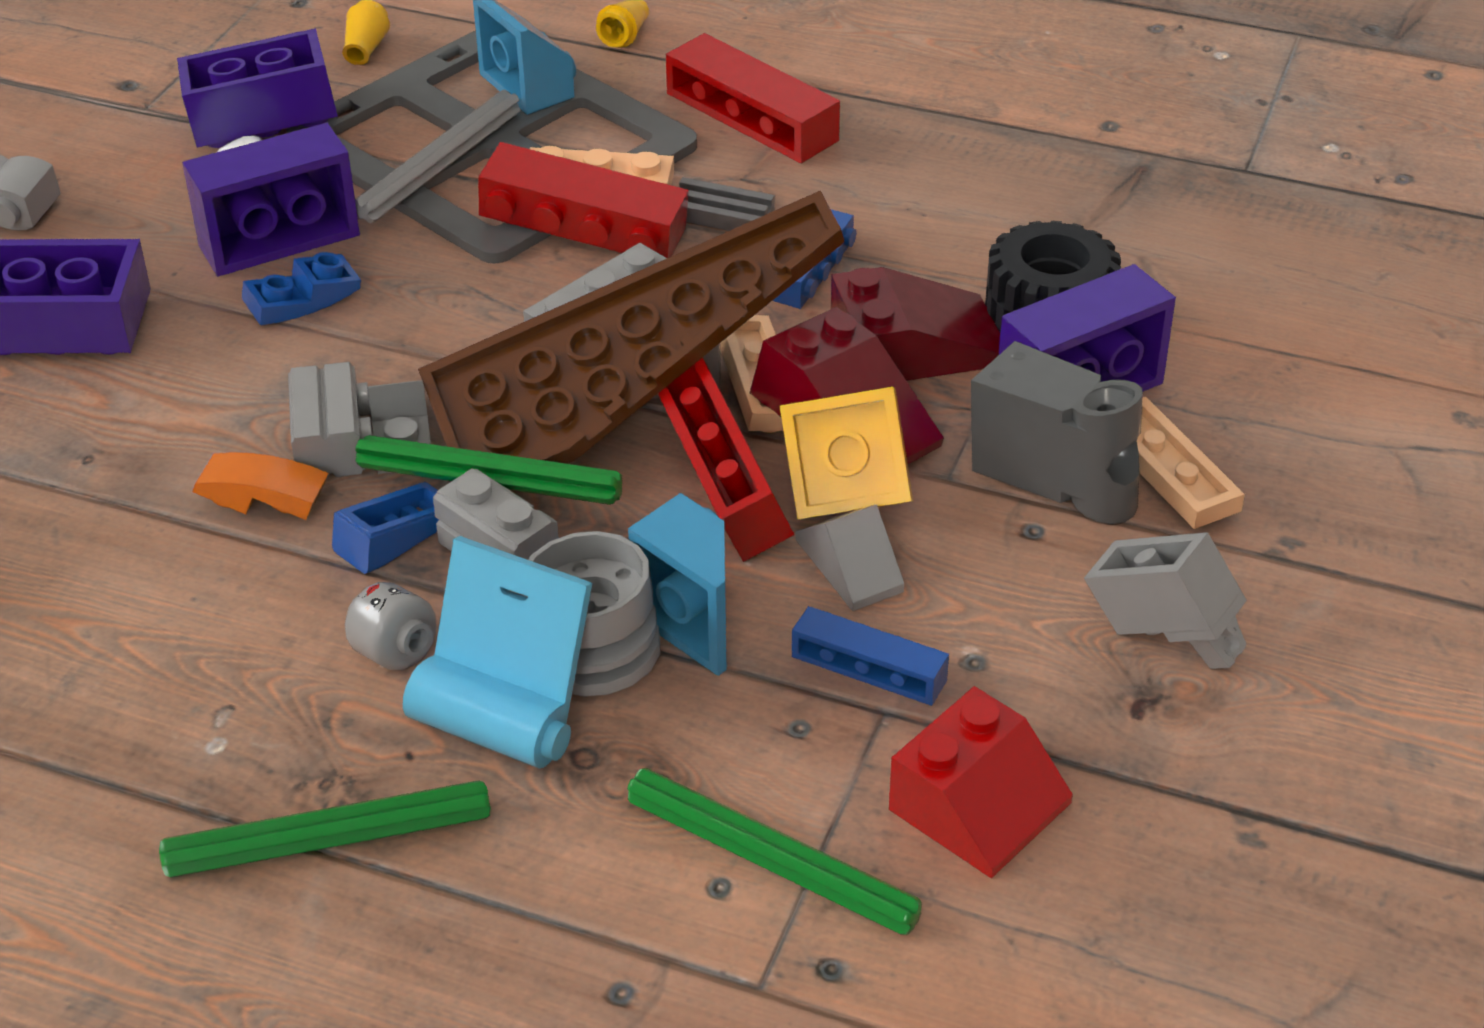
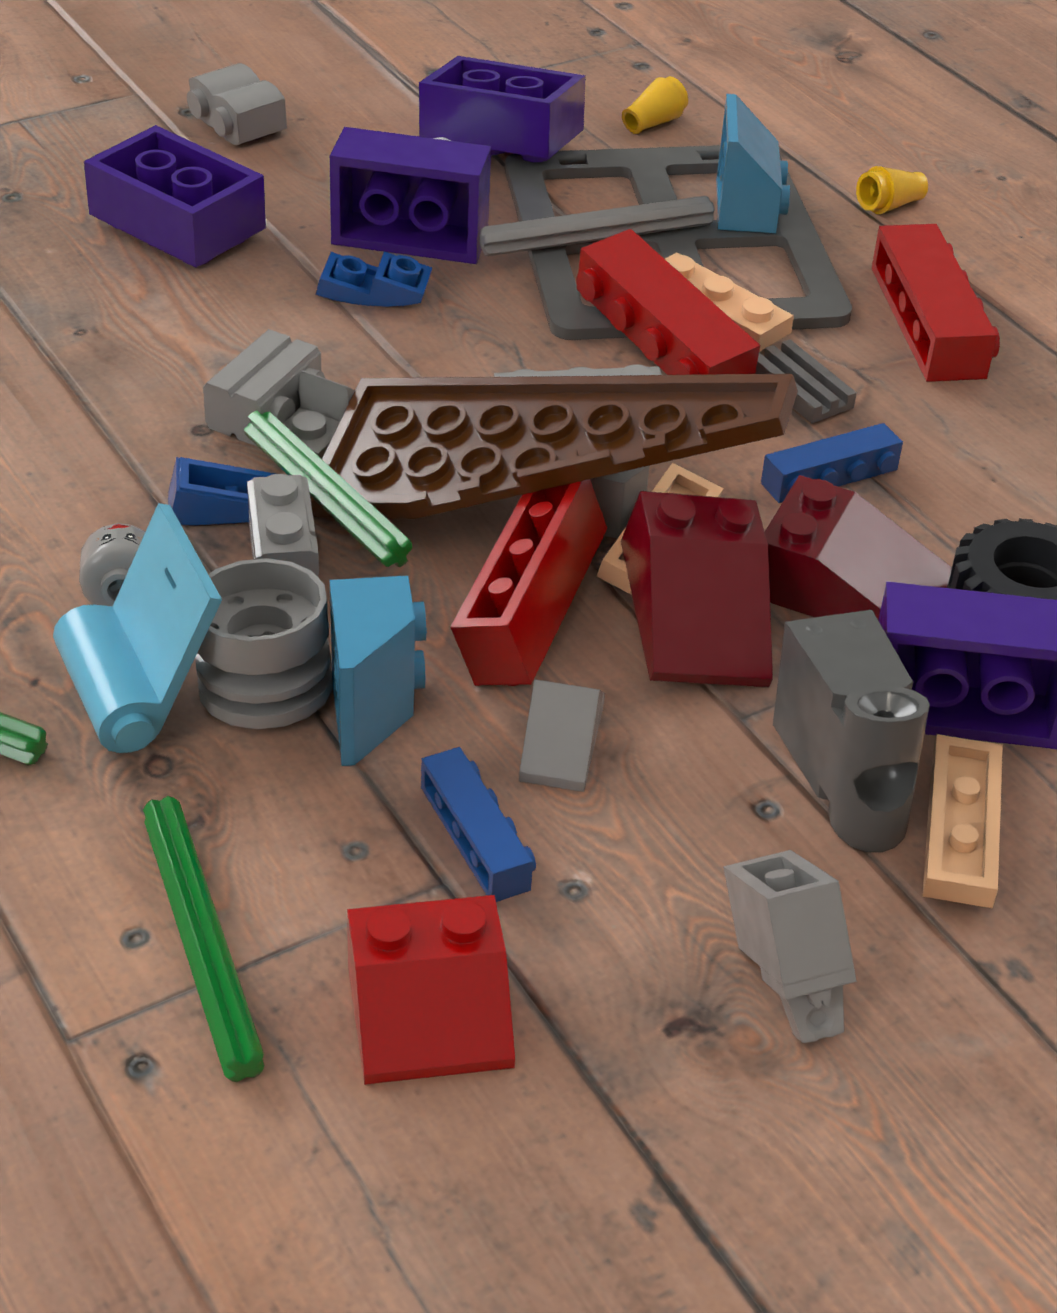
camera: 35 degrees right, 0 degrees up
(240, 478) = (166, 410): orange slope -> none
(846, 453) = (632, 633): yellow plate -> none

